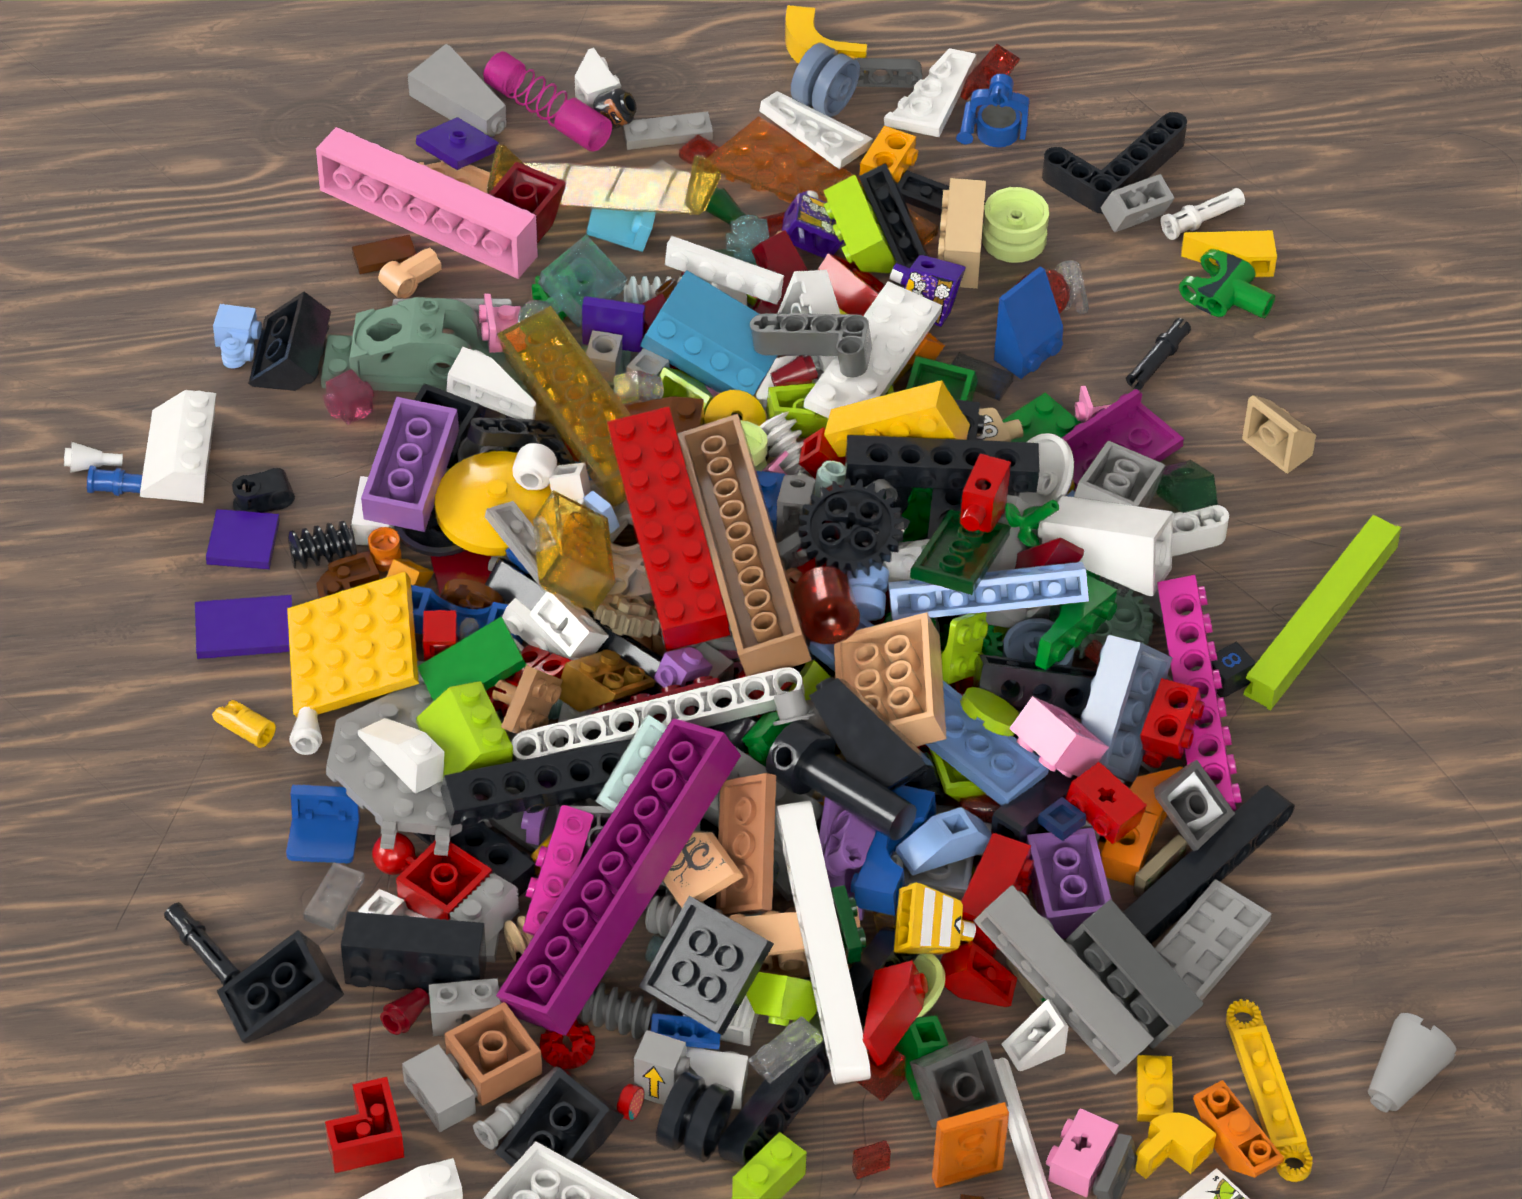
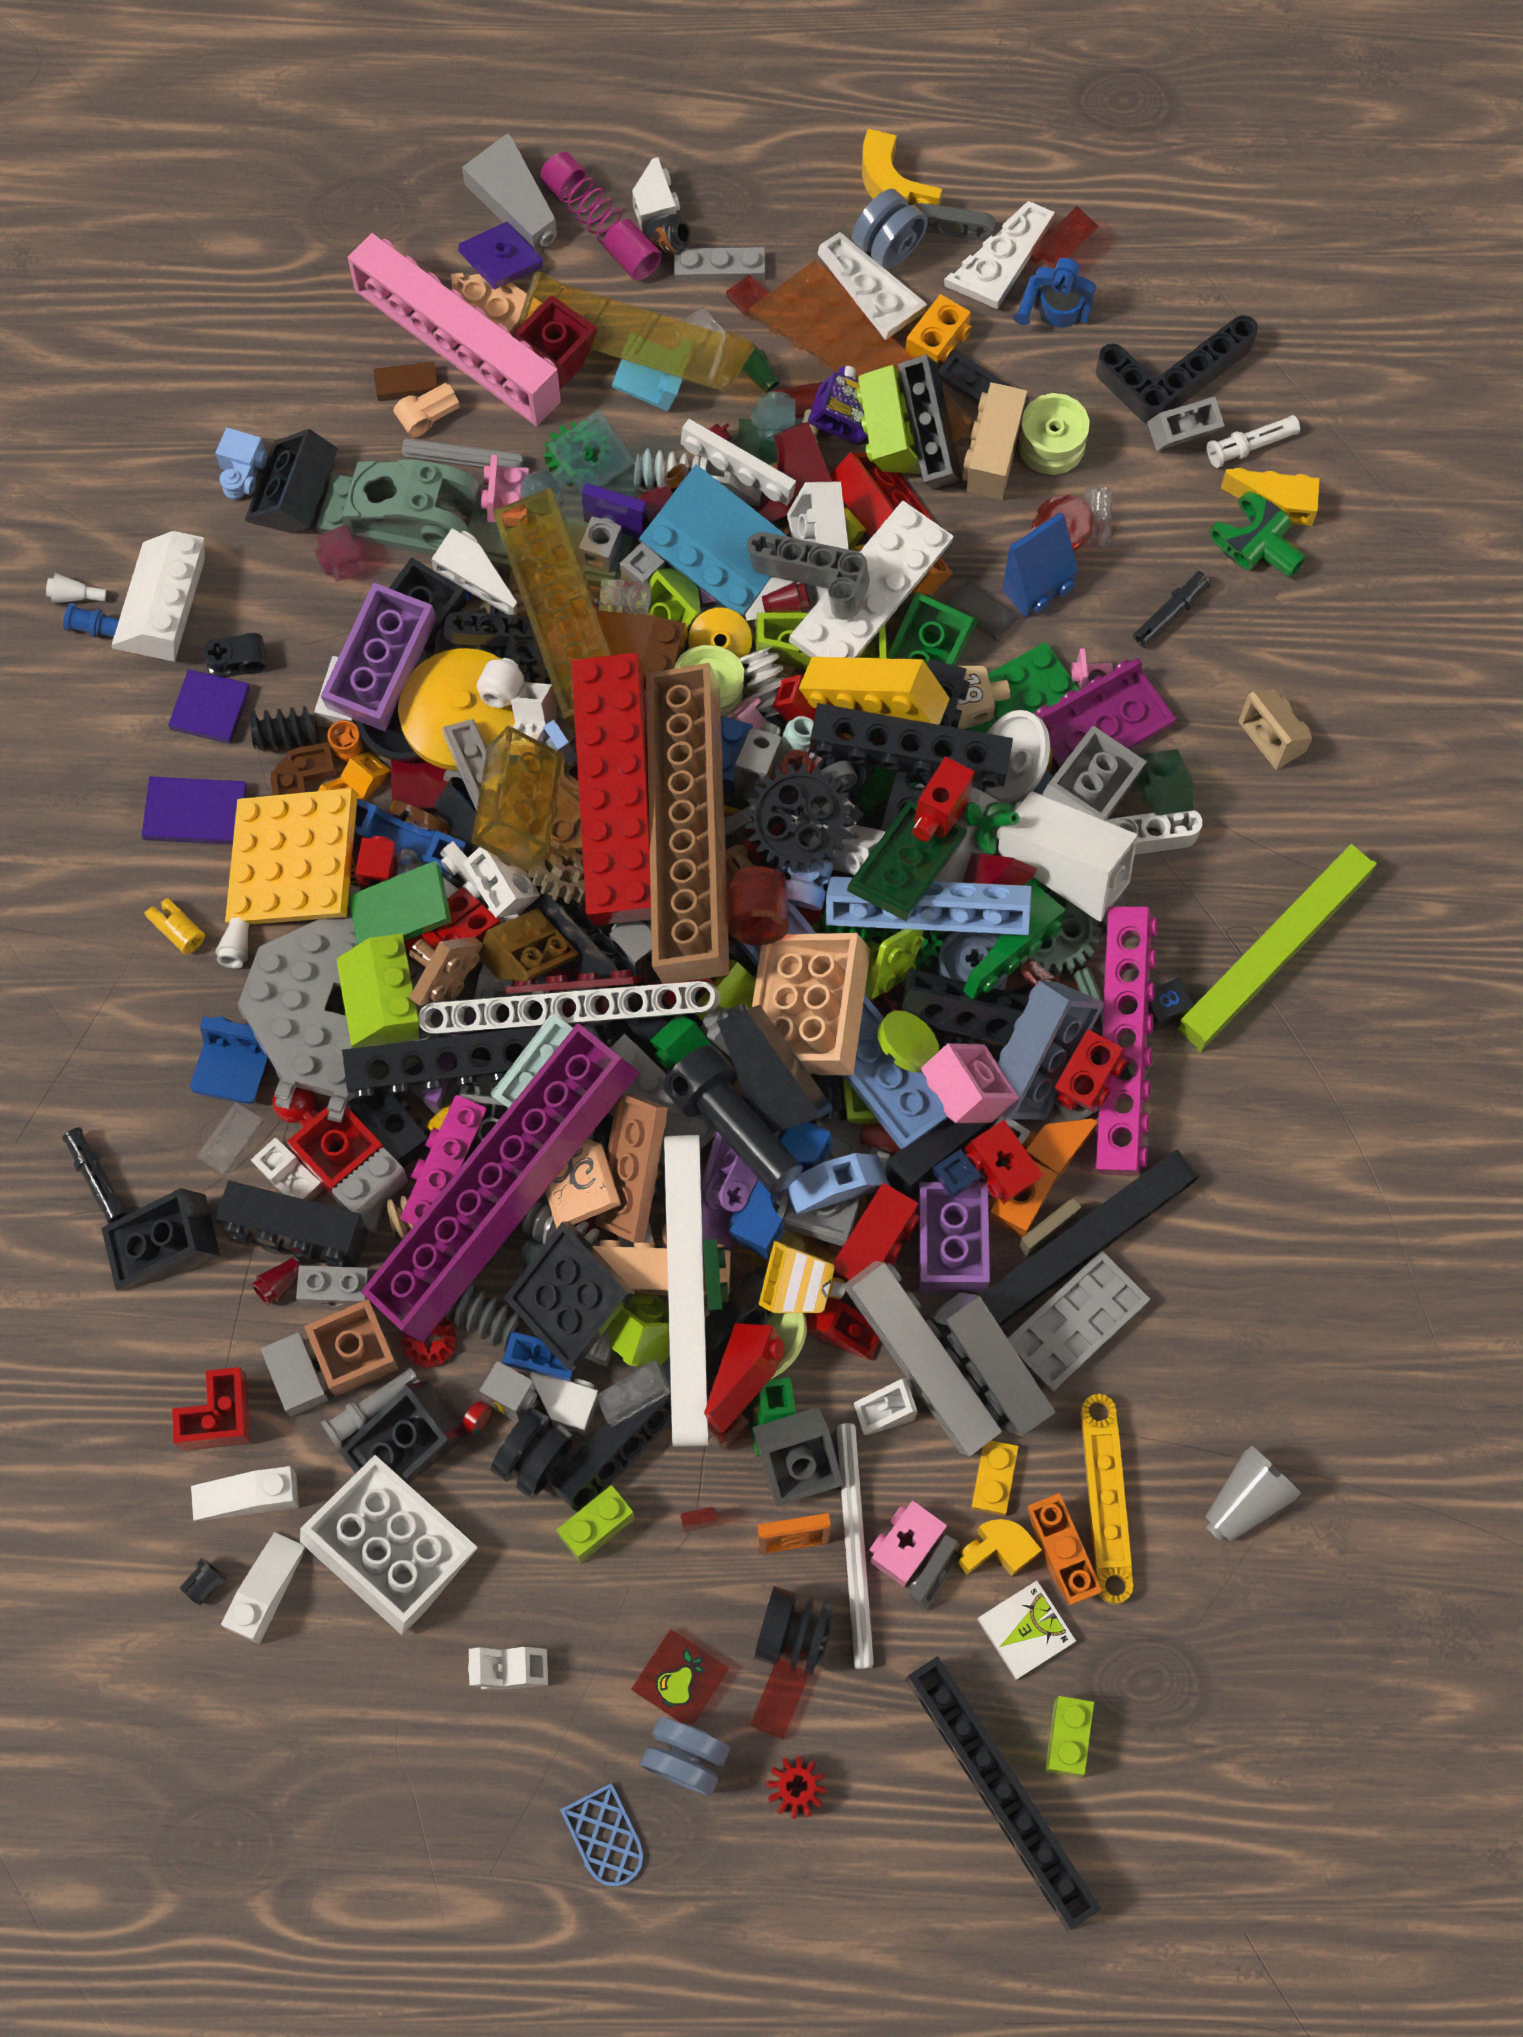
camera: 10 degrees right, 20 degrees up
(406, 752) = (314, 1003): white slope -> none
(682, 666) = (605, 947): medium lavender bracket -> none
(791, 707) = (698, 1030): light grey piece -> none
(933, 280) = (949, 501): dark purple torso -> none
(1193, 804) = (1092, 1172): flat silver slope -> none

